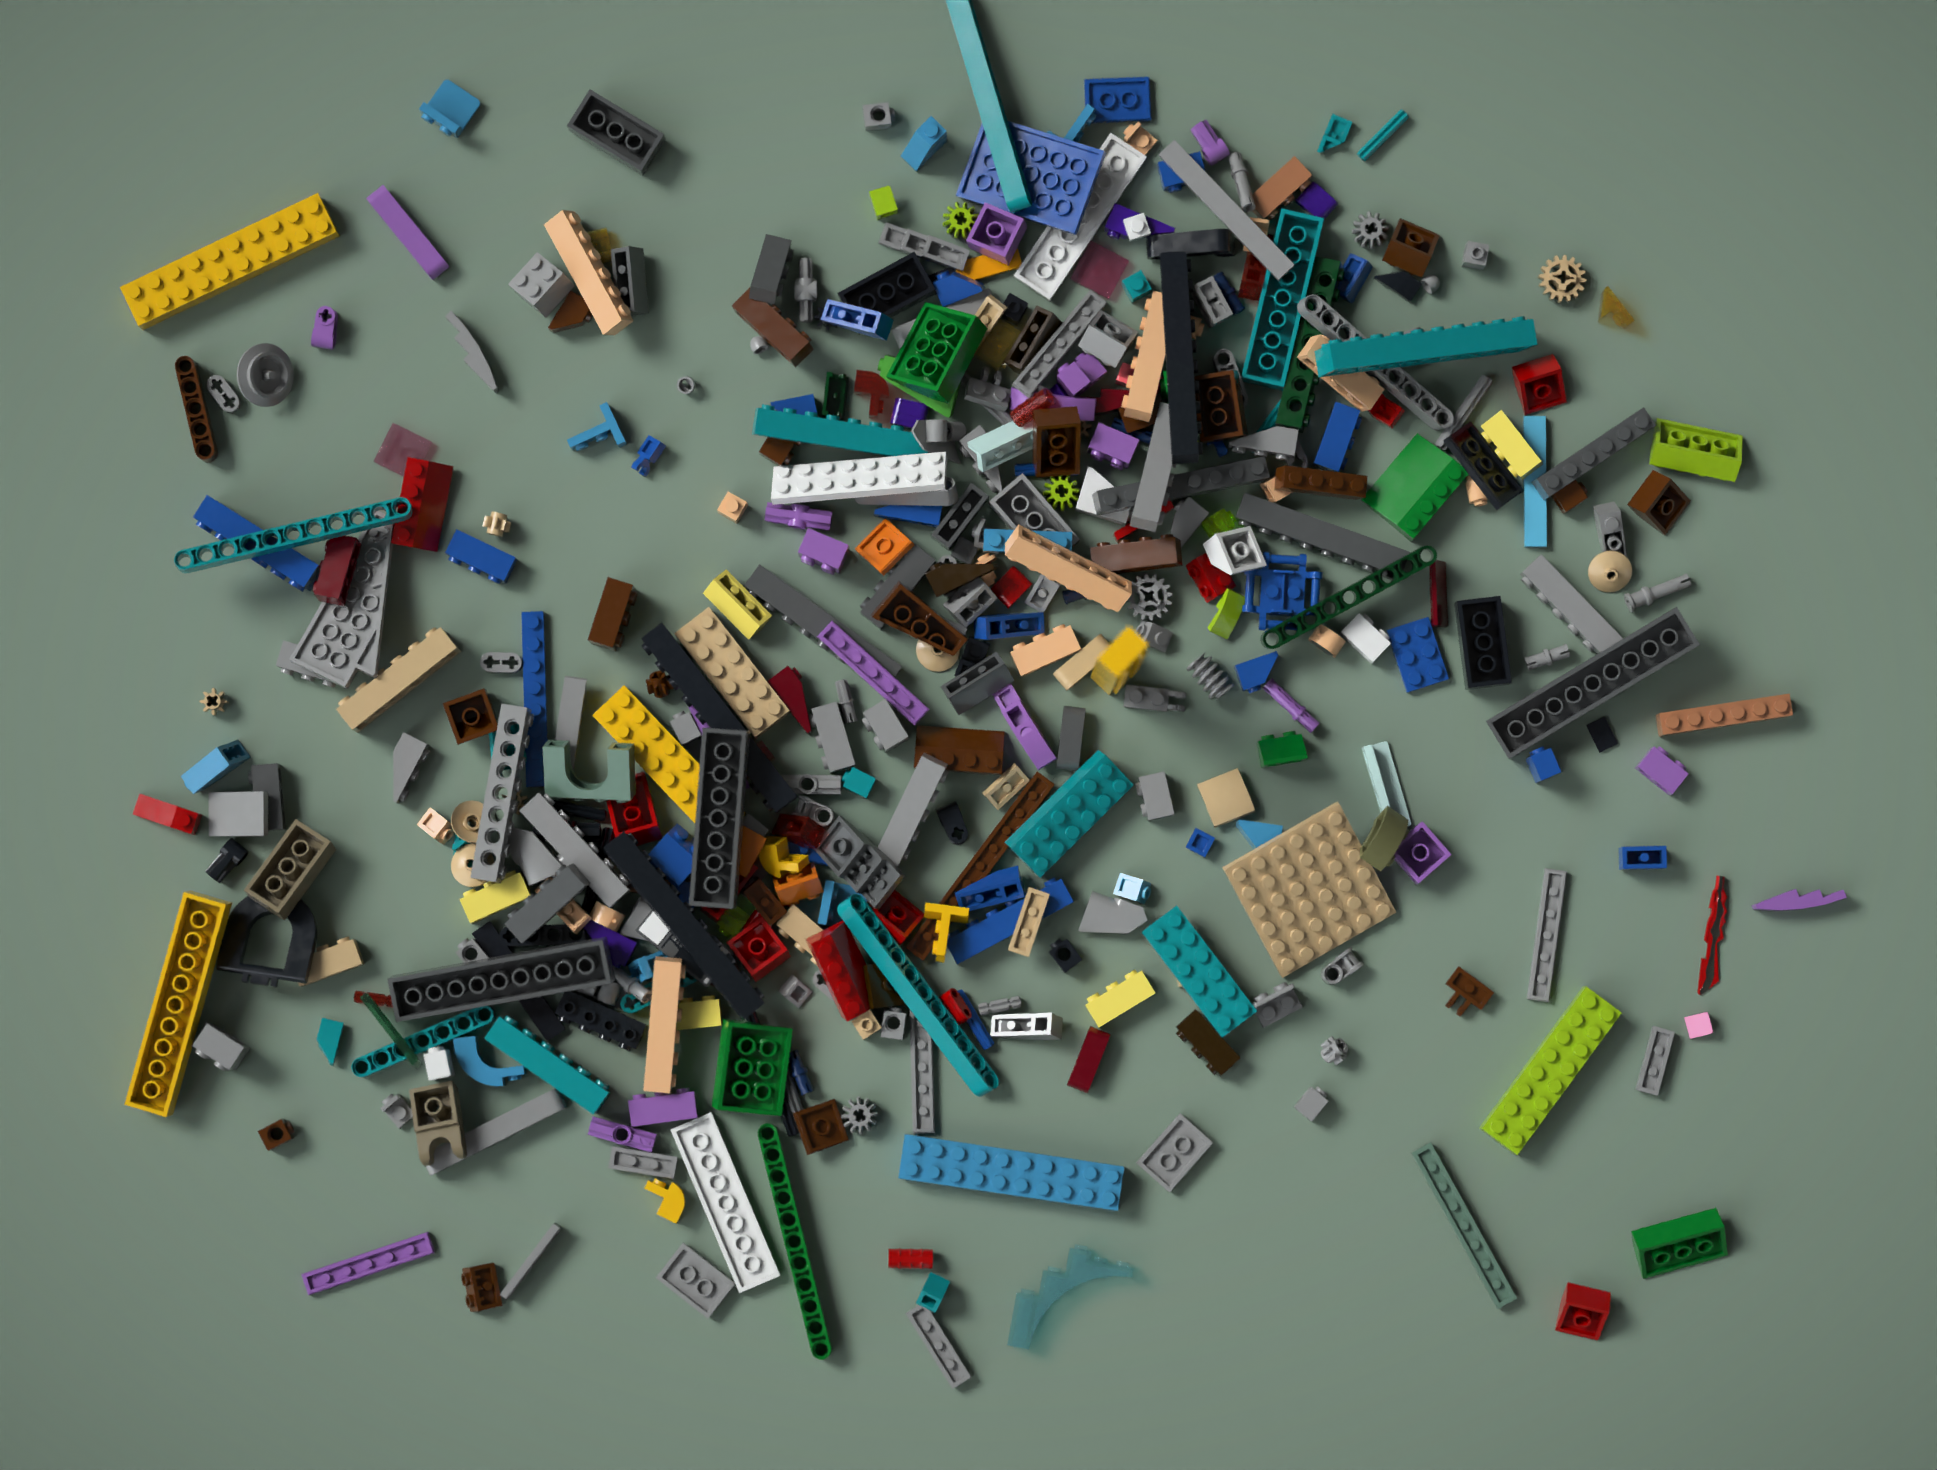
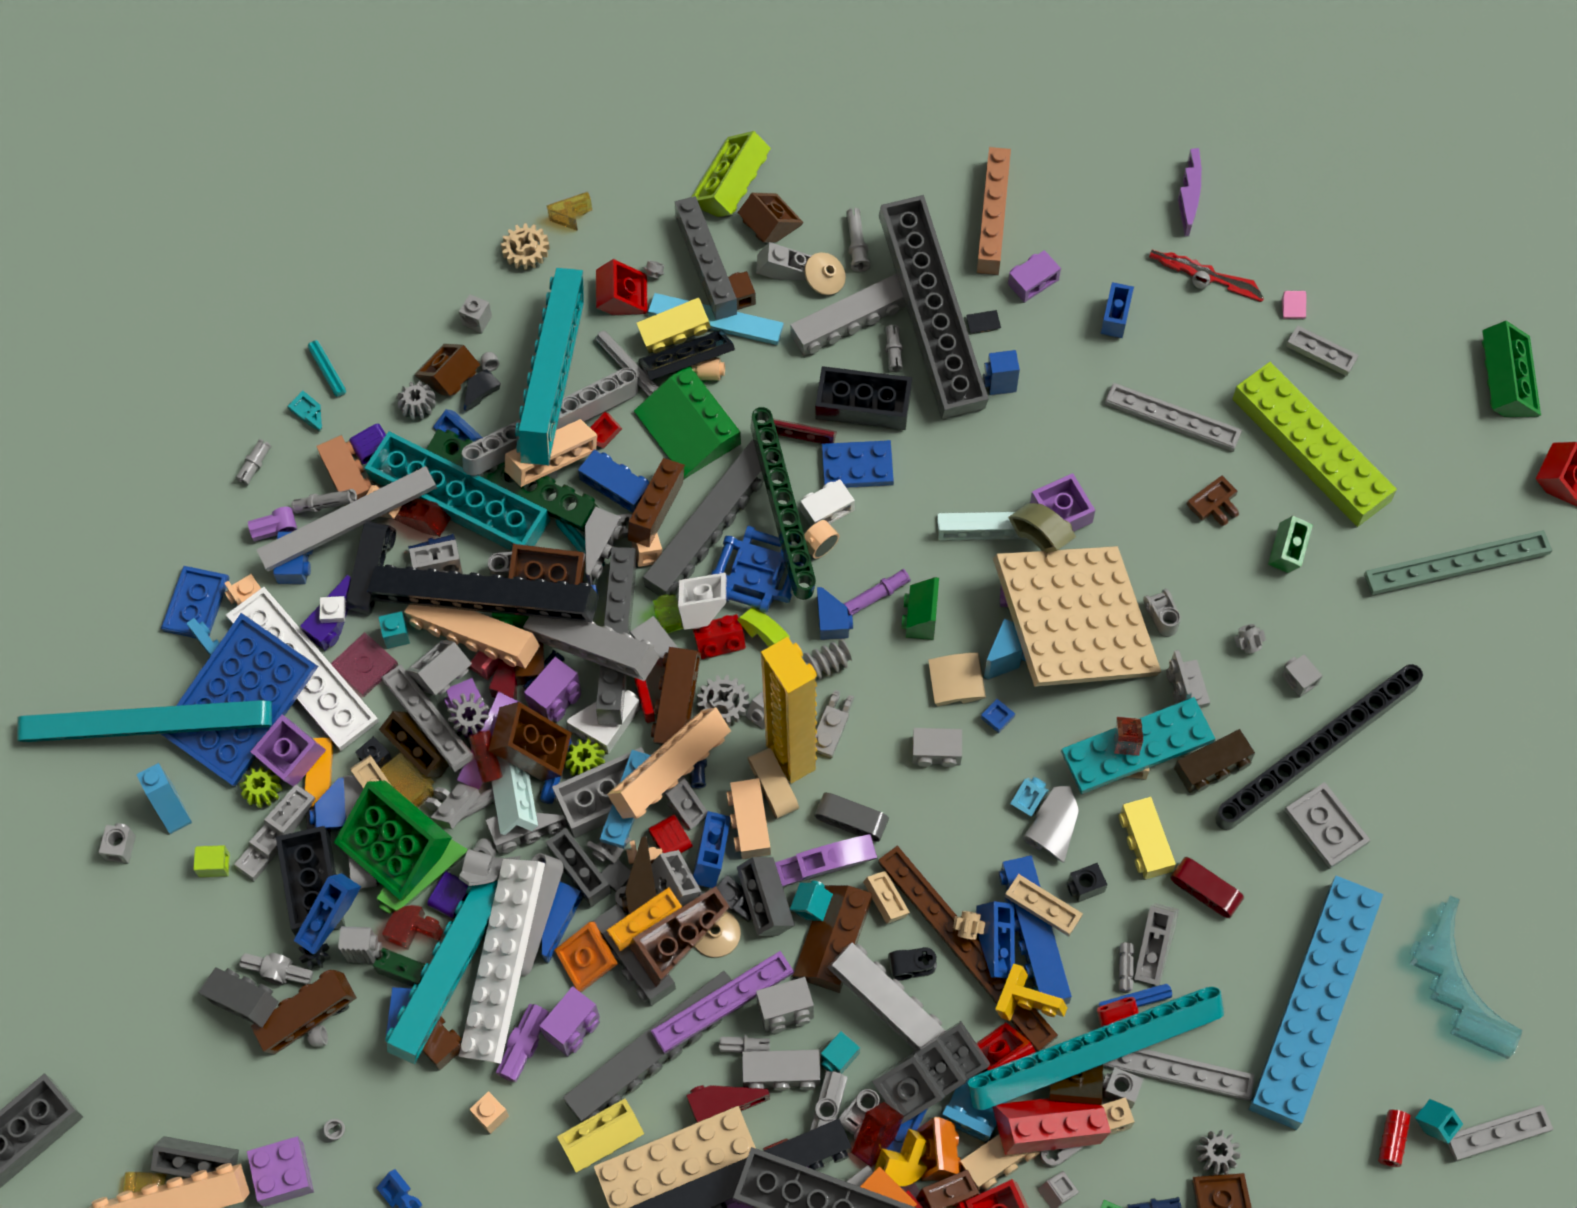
camera: 70 degrees left, 20 degrees down
(639, 353) = (280, 1171): none -> medium lavender brick
(841, 354) = (359, 945): none -> light grey brick
(925, 587) = (643, 918): none -> light orange tile
(984, 724) = (811, 901): none -> teal brick
(995, 863) = (969, 925): none -> tan gear
(1056, 375) = (475, 716): none -> light grey gear
(1069, 813) = (934, 836): teal brick -> none
(1201, 960) = (1128, 736): none -> clear red slope
(1257, 1136) = (1314, 755): none -> black beam
(1267, 102) = (253, 461): none -> light grey pin
(1437, 1068) = (1290, 544): none -> green brick
(1571, 408) = (654, 268): none -> light grey plate
(1706, 930) = (1198, 284): none -> light grey hinge

